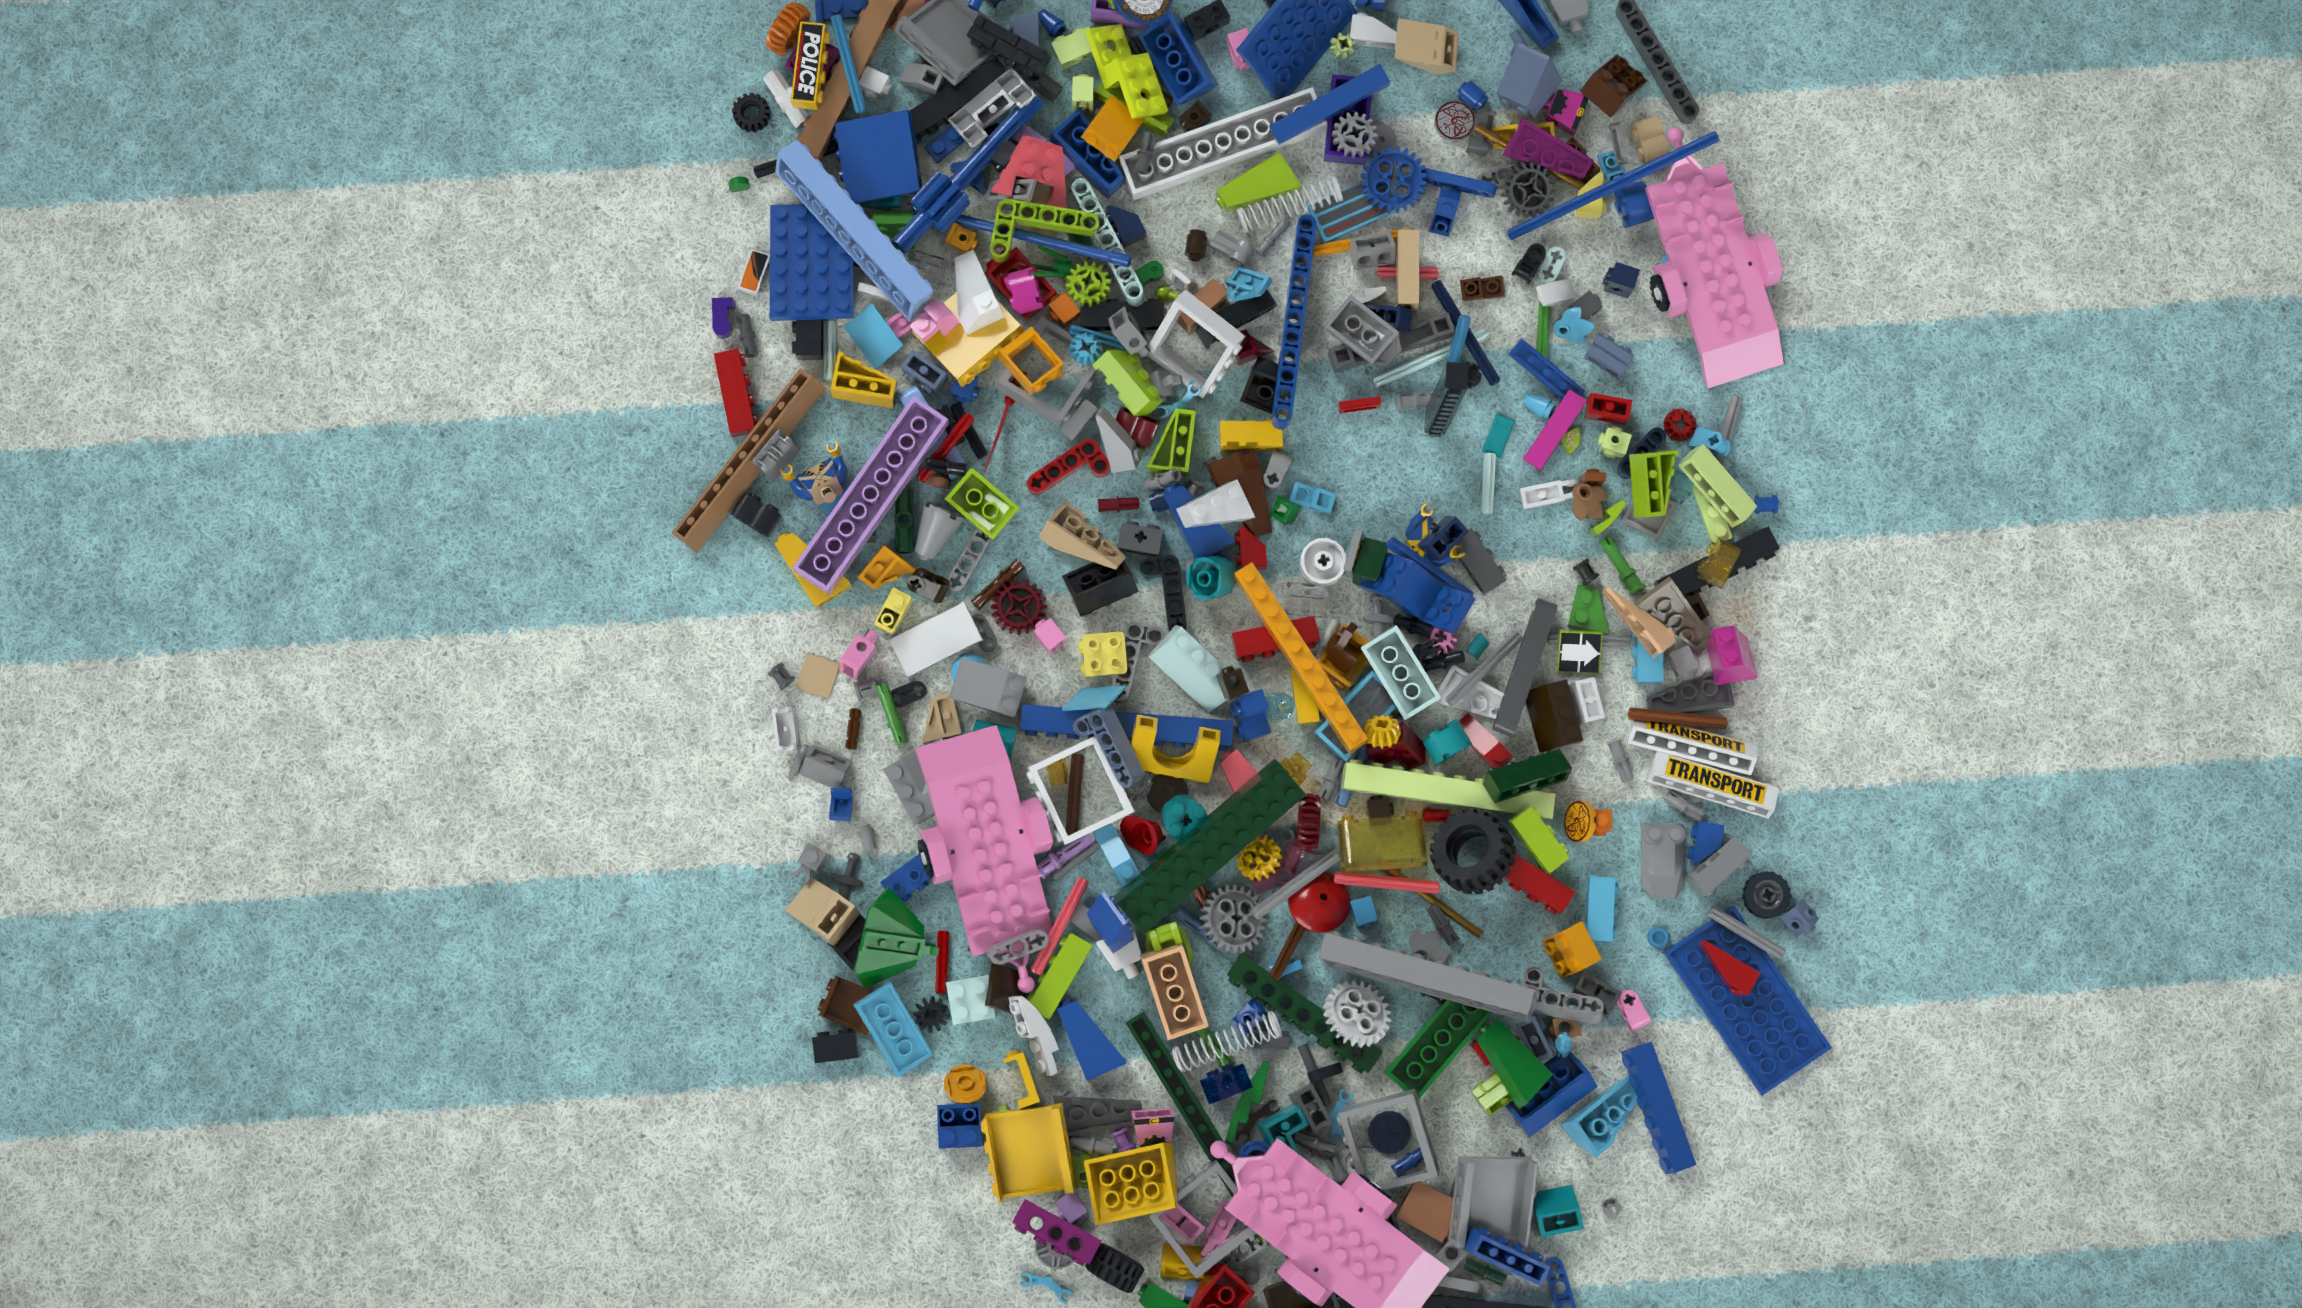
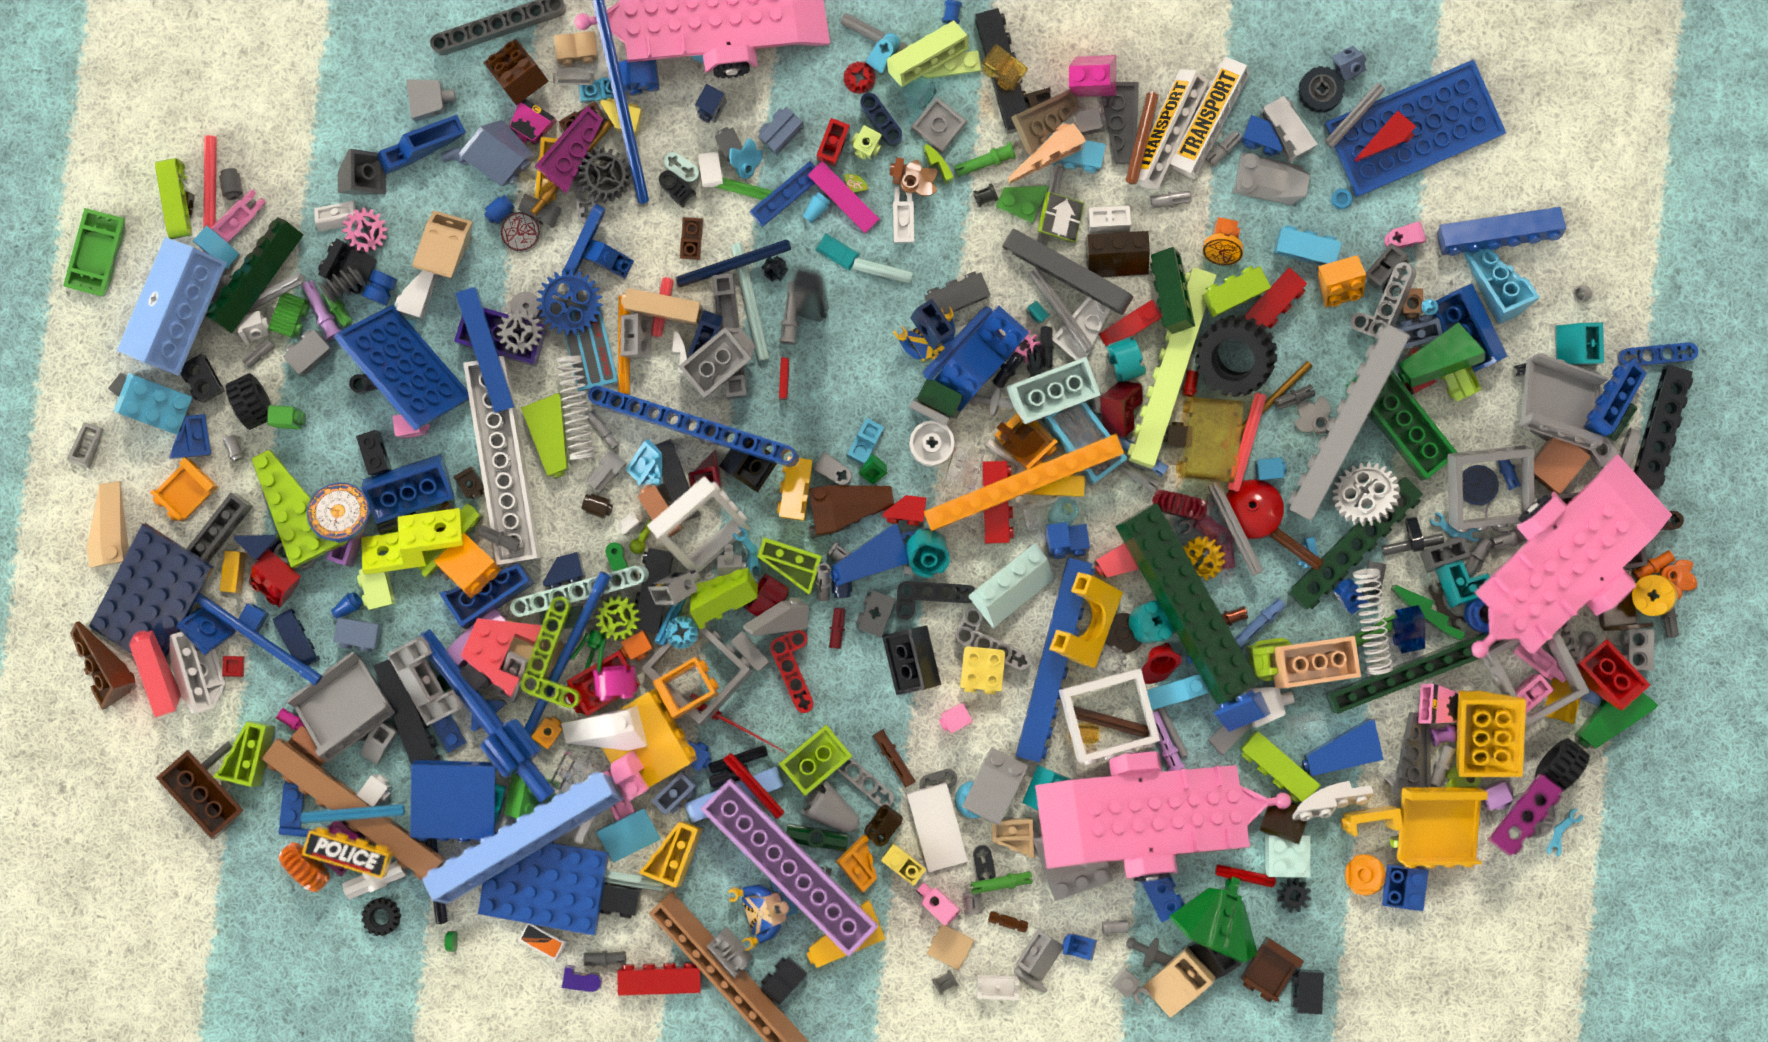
camera: 80 degrees left, 5 degrees up
(893, 1029) = (1302, 934): medium azure tile -> none
(939, 482) = (784, 797): nougat tile -> none
(946, 466) = (773, 789): black axle -> none
(1008, 46) = (365, 652): black brick -> none
(1011, 612) = (927, 757): dark red gear -> none
(1030, 935) = (1257, 816): light grey beam -> none
(1045, 86) = (407, 624): dark grey piece -> none
(1060, 925) = (1233, 758): coral axle -> none
(1072, 534) = (862, 675): tan wedge -> none
(1083, 93) = (426, 588): yellowish green brick -> none
(1094, 698) = (1024, 686): medium azure window -> none
(1113, 743) = (1071, 677): sand blue beam -> none
(1215, 917) = (1254, 610): light grey gear -> none
(1217, 507) = (862, 535): white wedge -> none
(1240, 686) = (1042, 546): dark brown brick -> none
(1296, 767) = (1123, 507): clear yellow brick -> none
(1336, 45) = (425, 332): yellowish green gear -> none
(1382, 731) = (1108, 418): yellow gear -> none
(1459, 339) = (744, 272): dark azure axle -> none
(1651, 481) = (913, 115): lime wedge -> none

